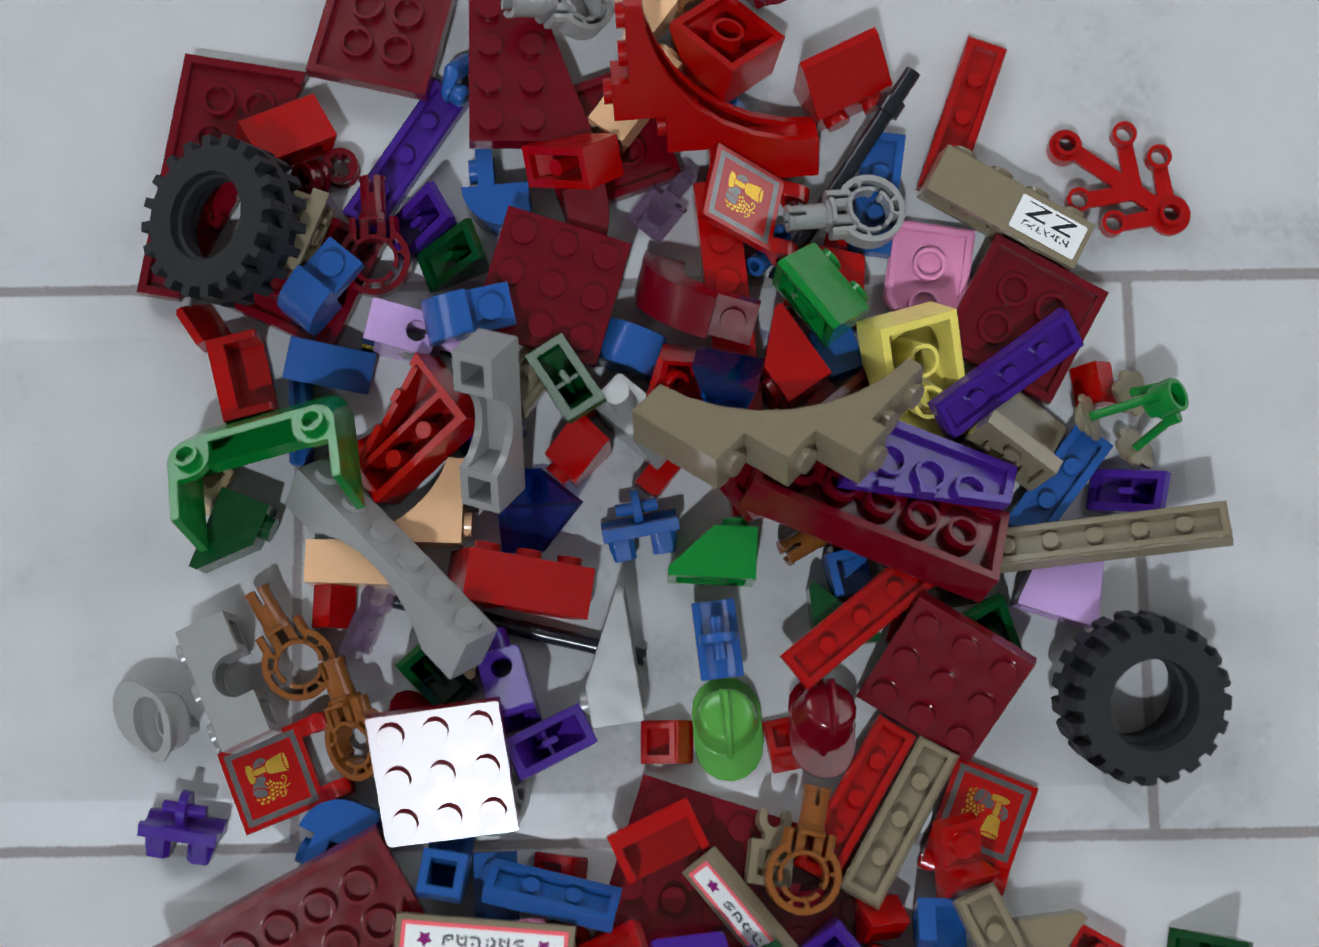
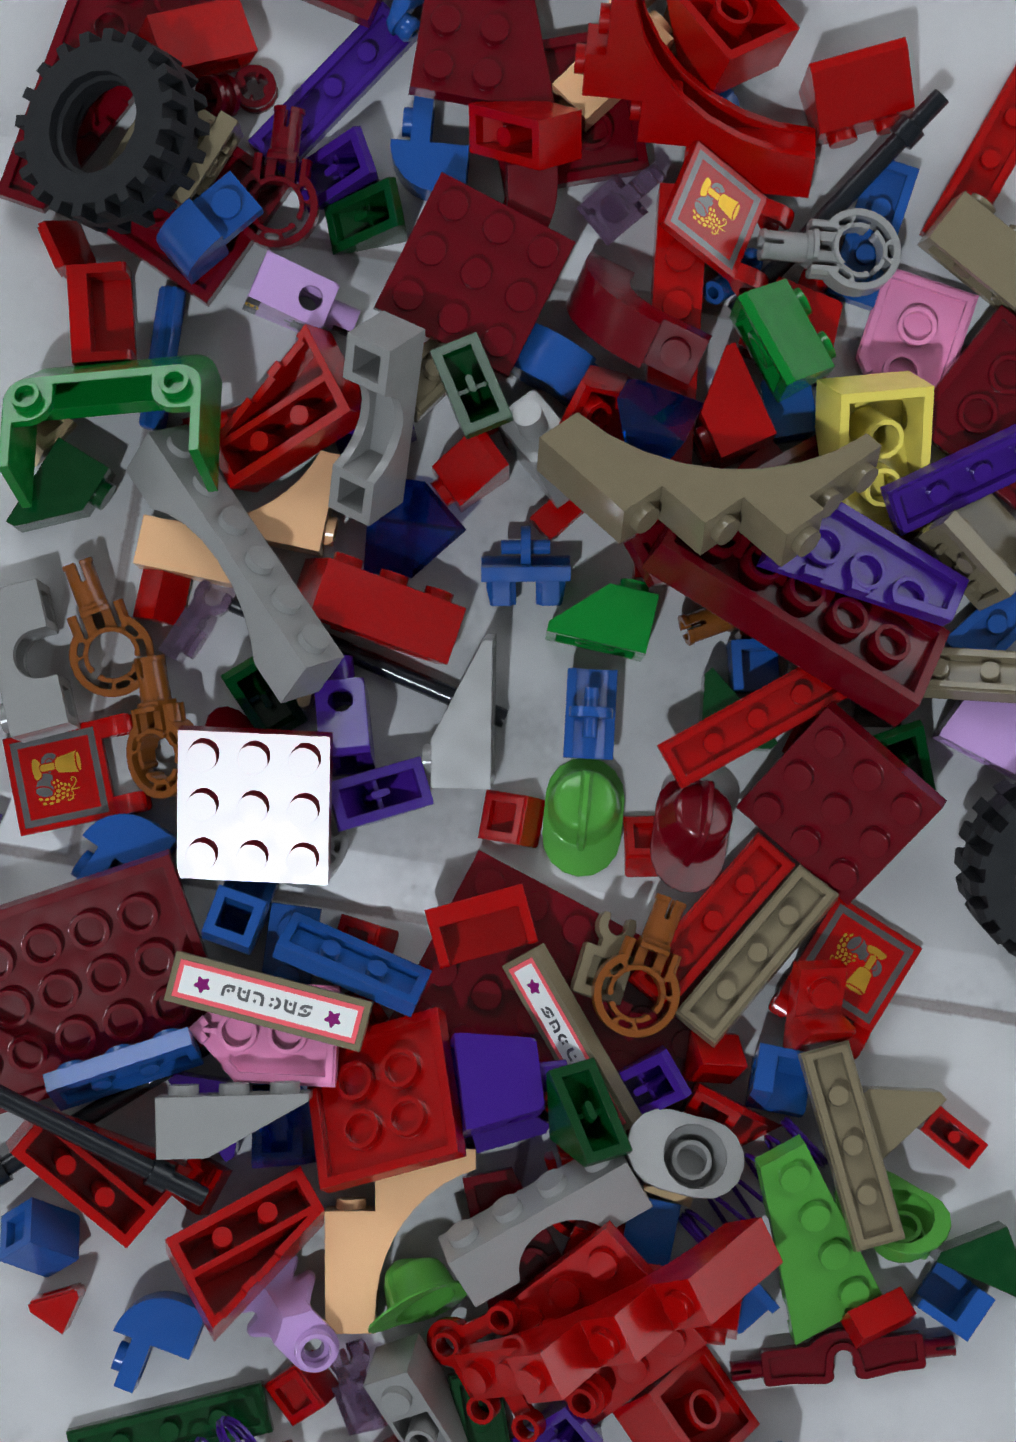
camera: 10 degrees right, 5 degrees up
(329, 365) = (203, 319): blue slope -> none
(461, 312) = (369, 288): blue brick -> none

